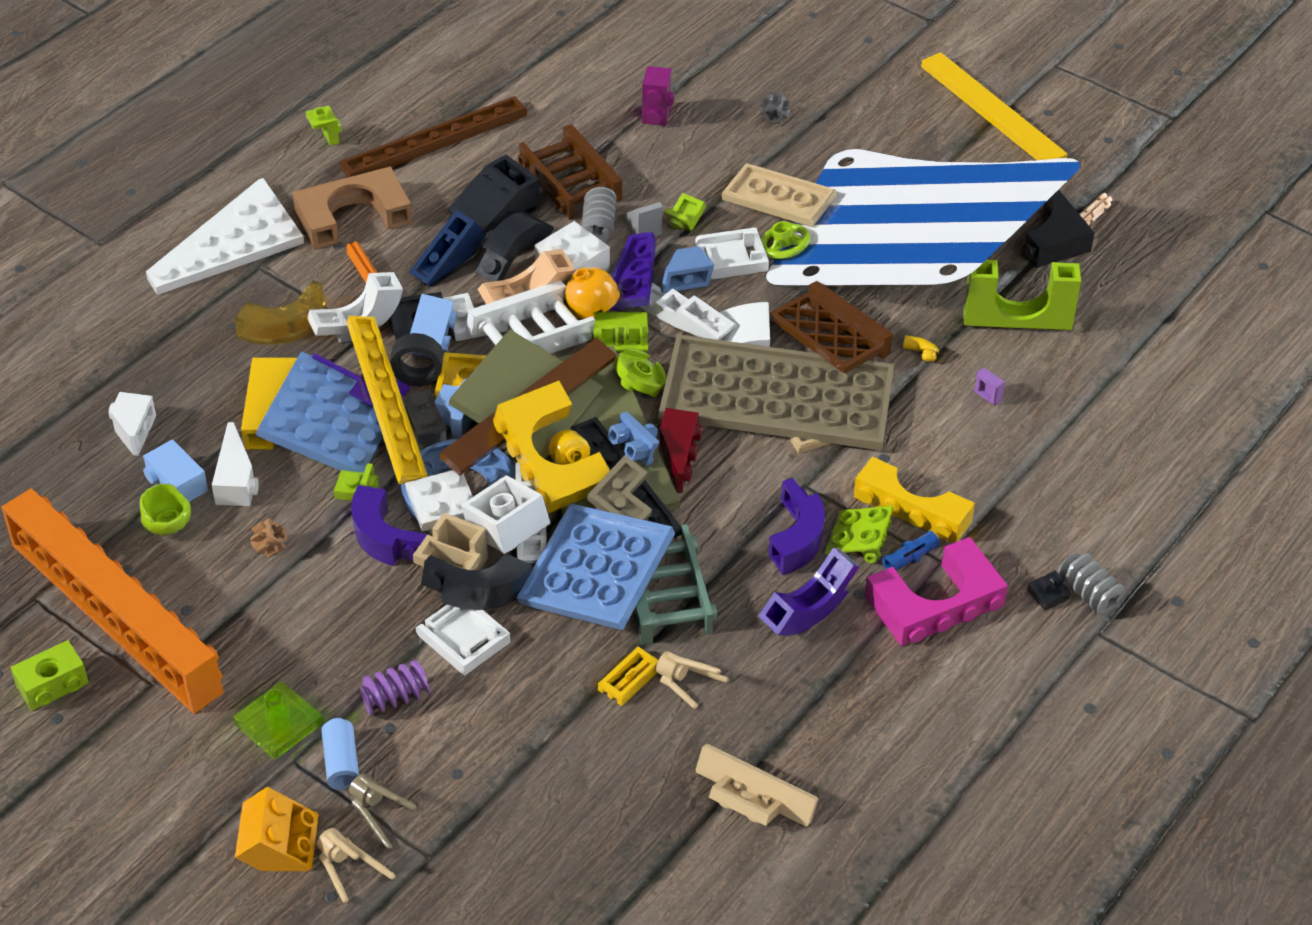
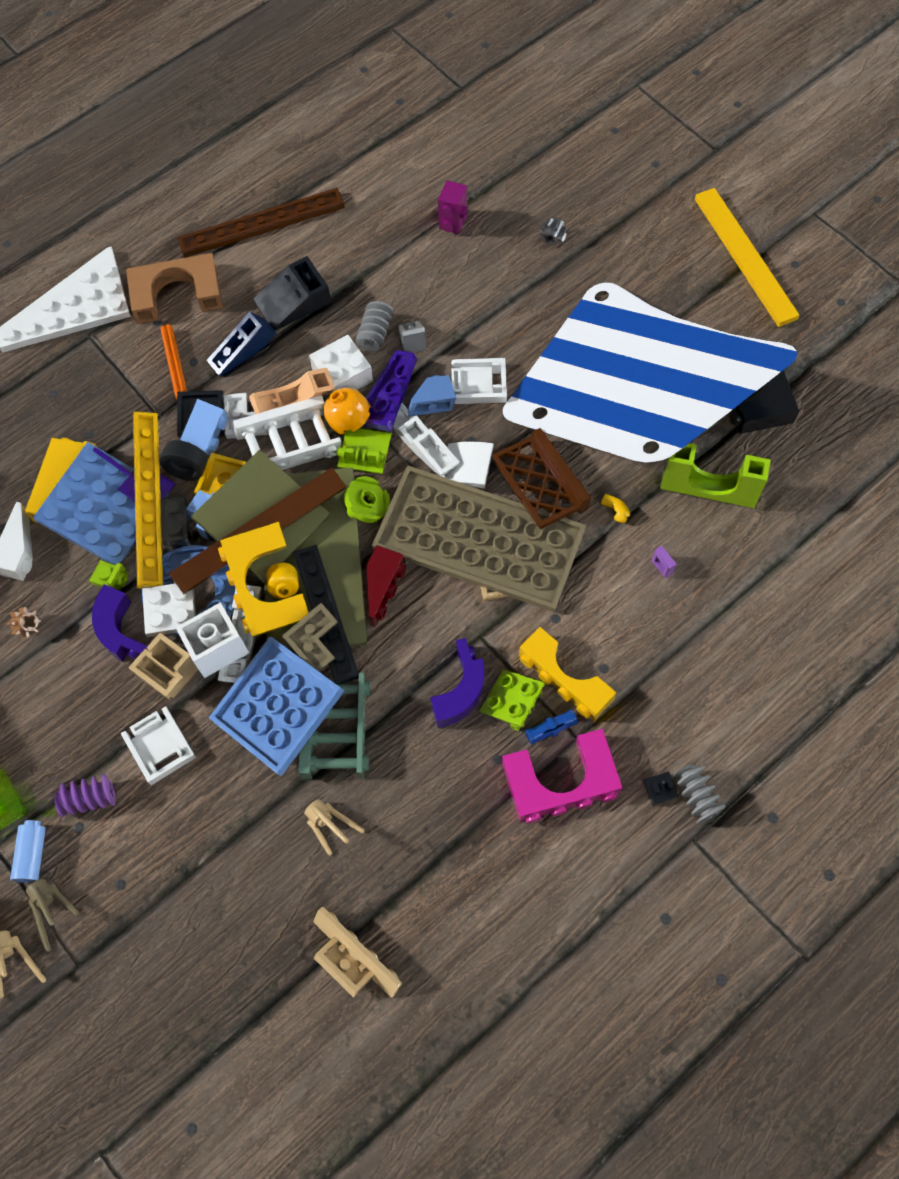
camera: 15 degrees right, 20 degrees up
(280, 324) = (94, 400): clear yellow arch -> none
(324, 118) = (170, 194): lime bracket -> none
(377, 300) = (161, 399): white arch -> none
(476, 588) = (177, 709): black arch -> none
(507, 241) = (292, 343): black arch -> none
(582, 155) = (377, 261): reddish brown fence -> none
(635, 677) = (288, 821): yellow tile -> none
(638, 439) = (345, 574): medium blue hips -> none
(685, 212) = (448, 333): lime bracket -> none
(779, 194) = (534, 325): tan tile -> none
(784, 237) = (525, 373): lime piece -> none
(800, 610) = (449, 769): dark purple arch -> none
(1096, 208) = (808, 380): light nougat axle -> none

